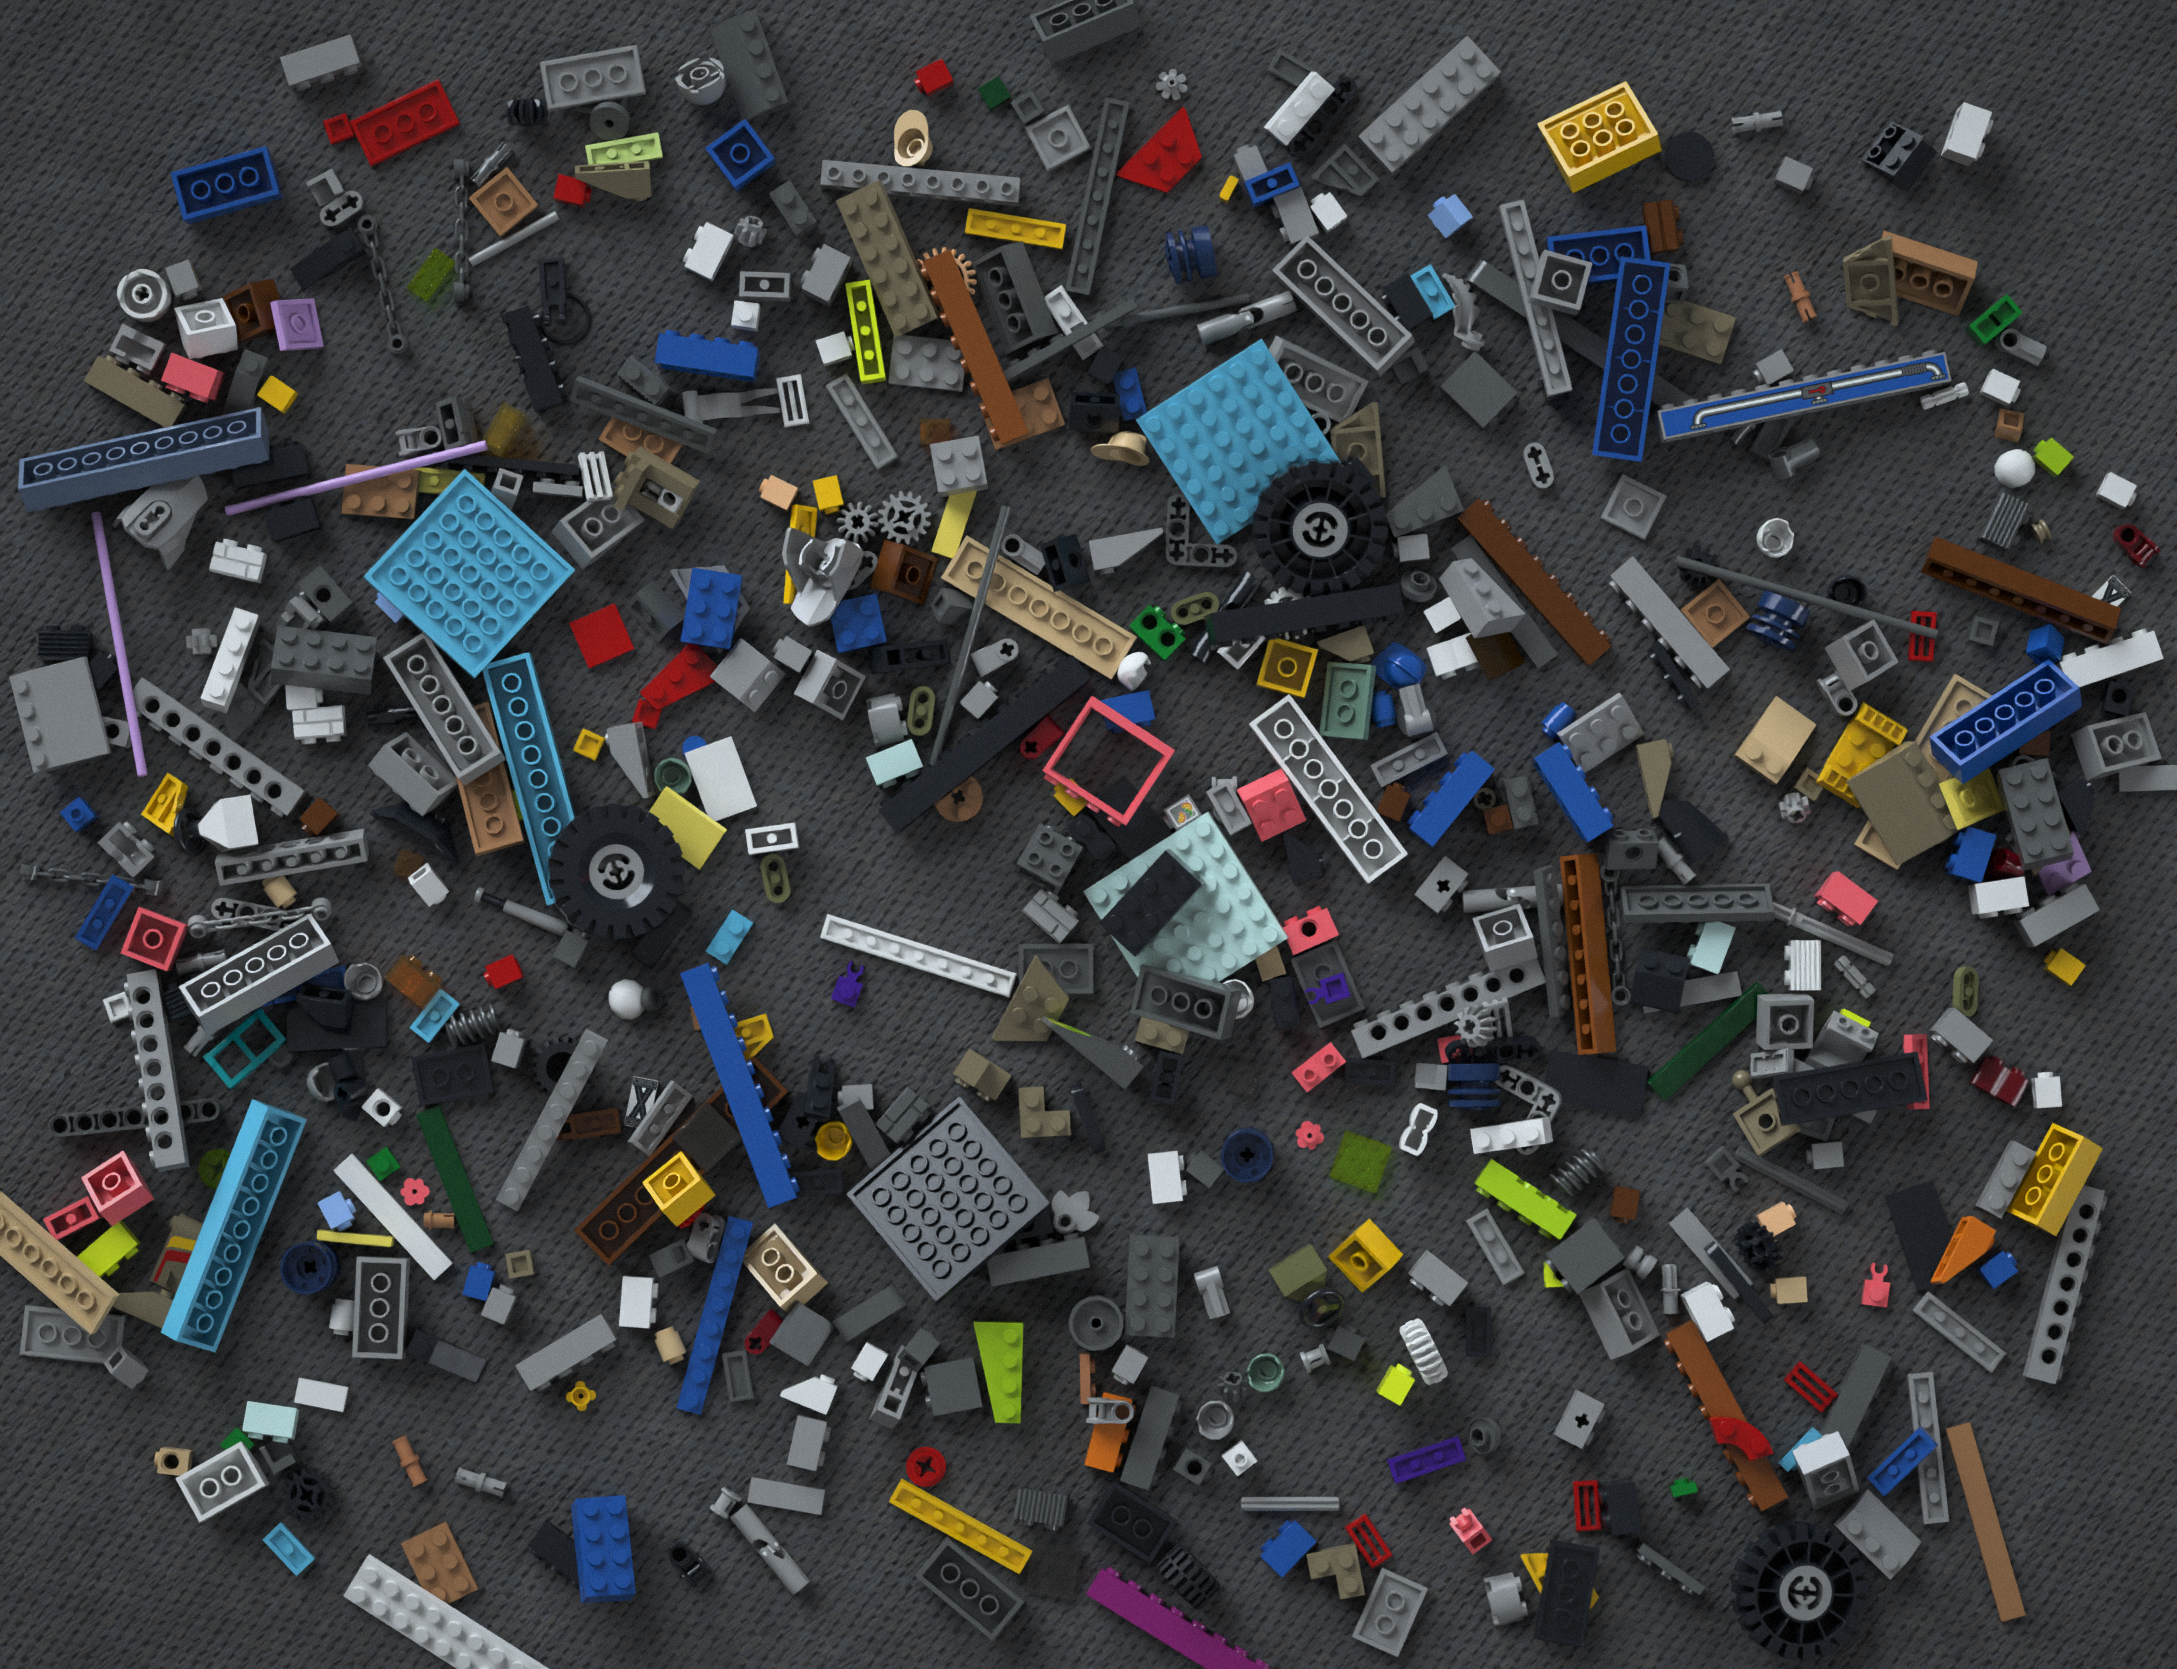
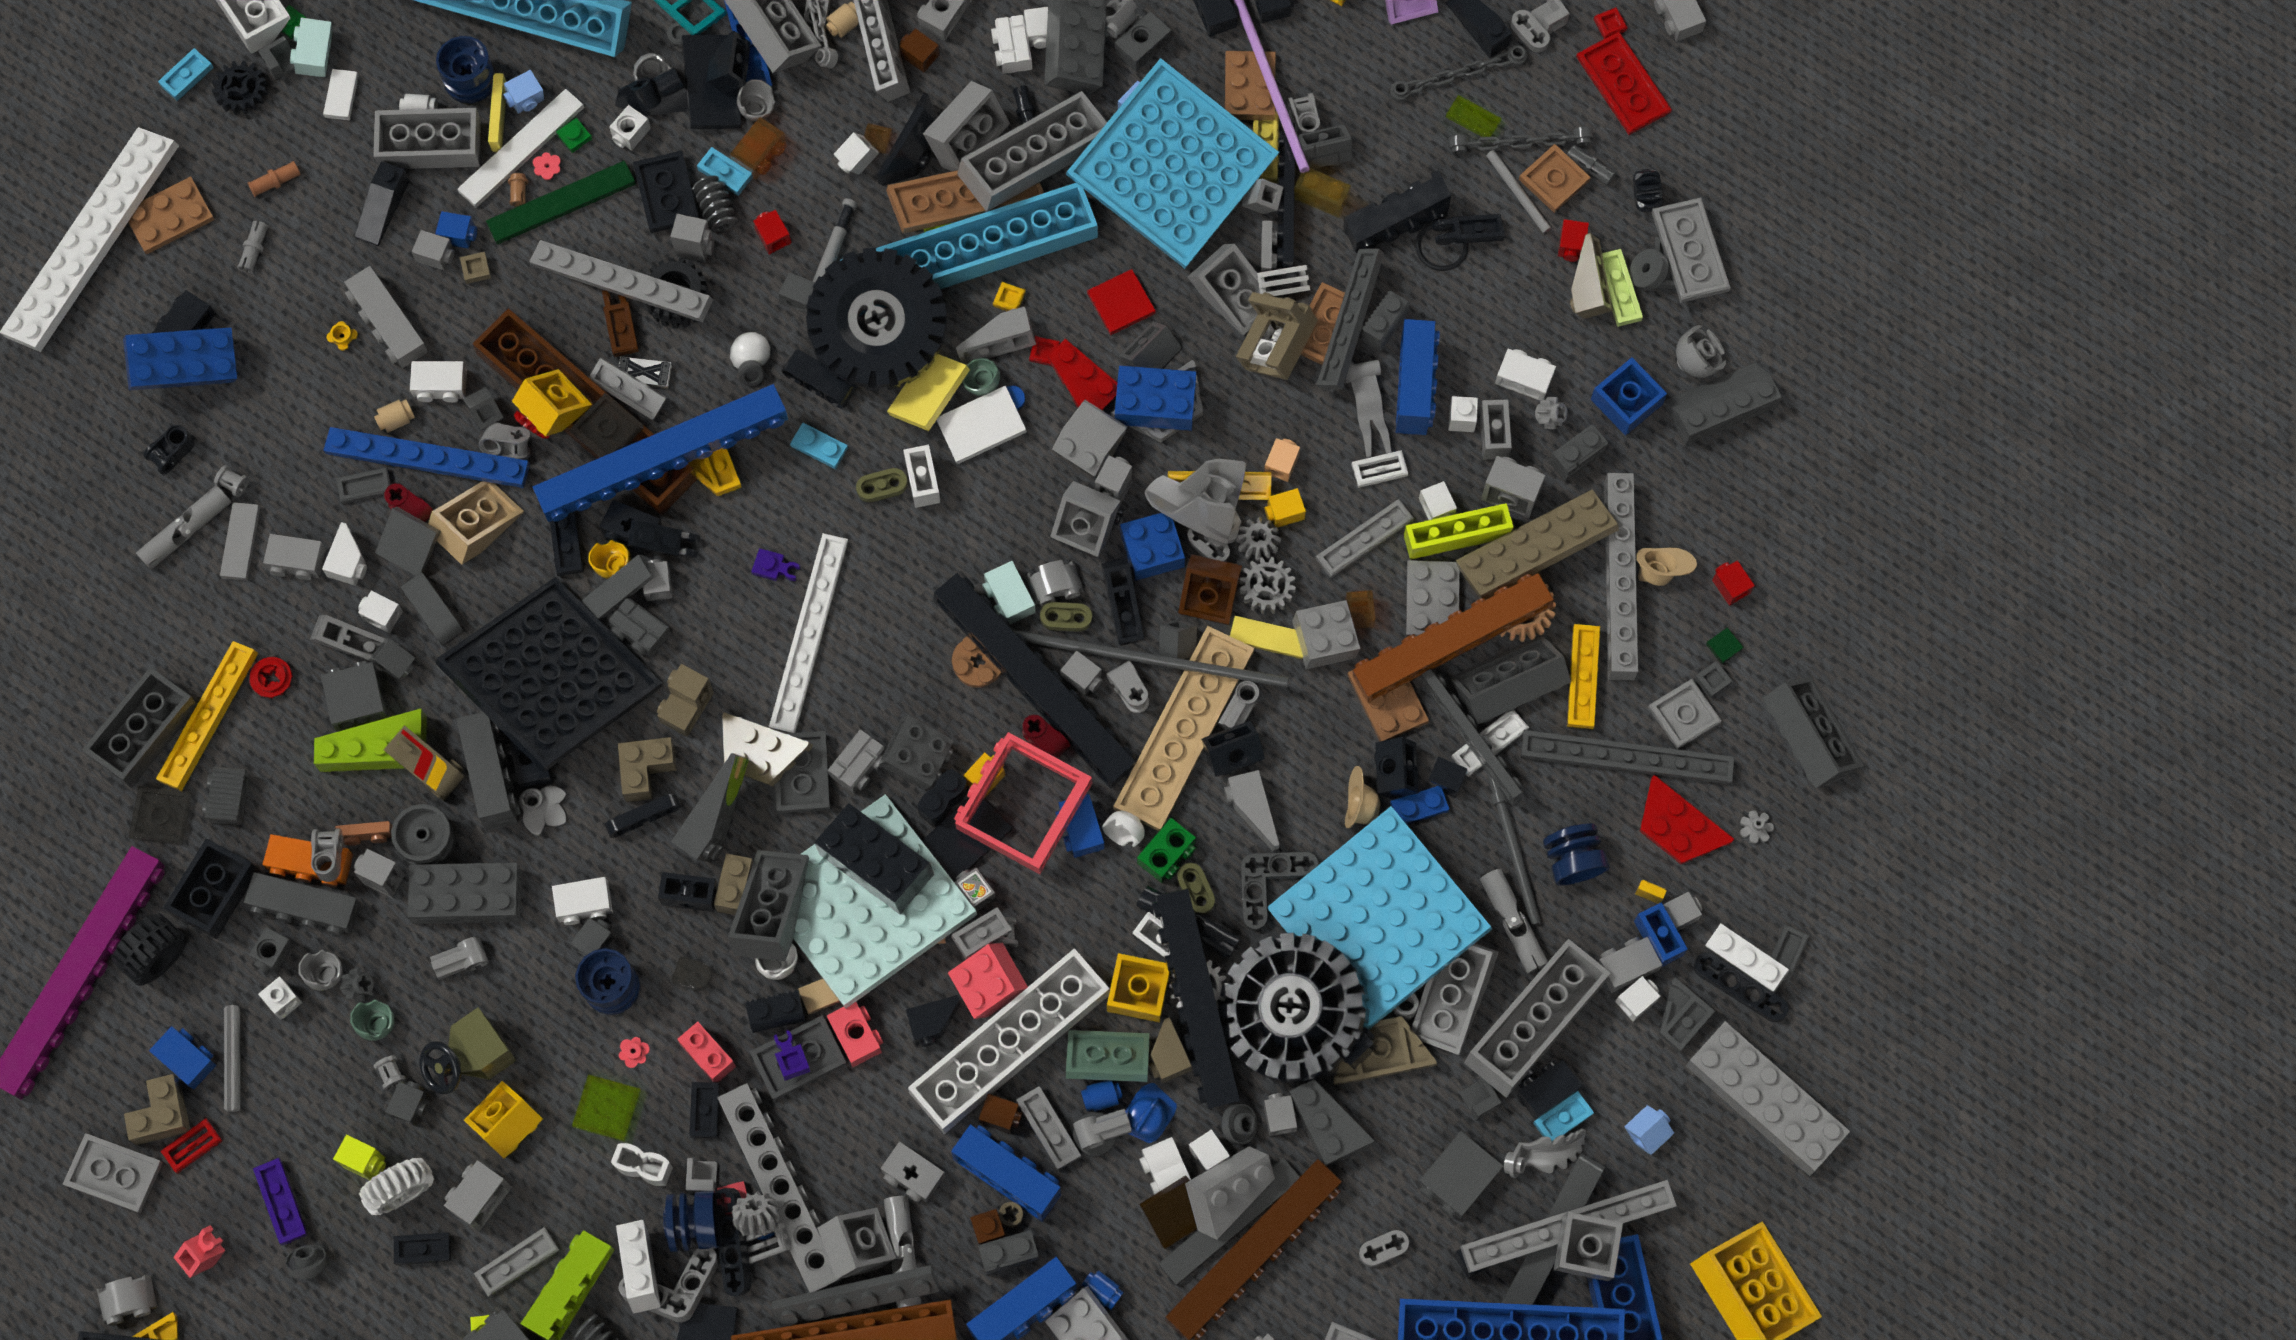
camera: 85 degrees right, 15 degrees down
(1026, 1319) = (425, 763): none -> dark tan door

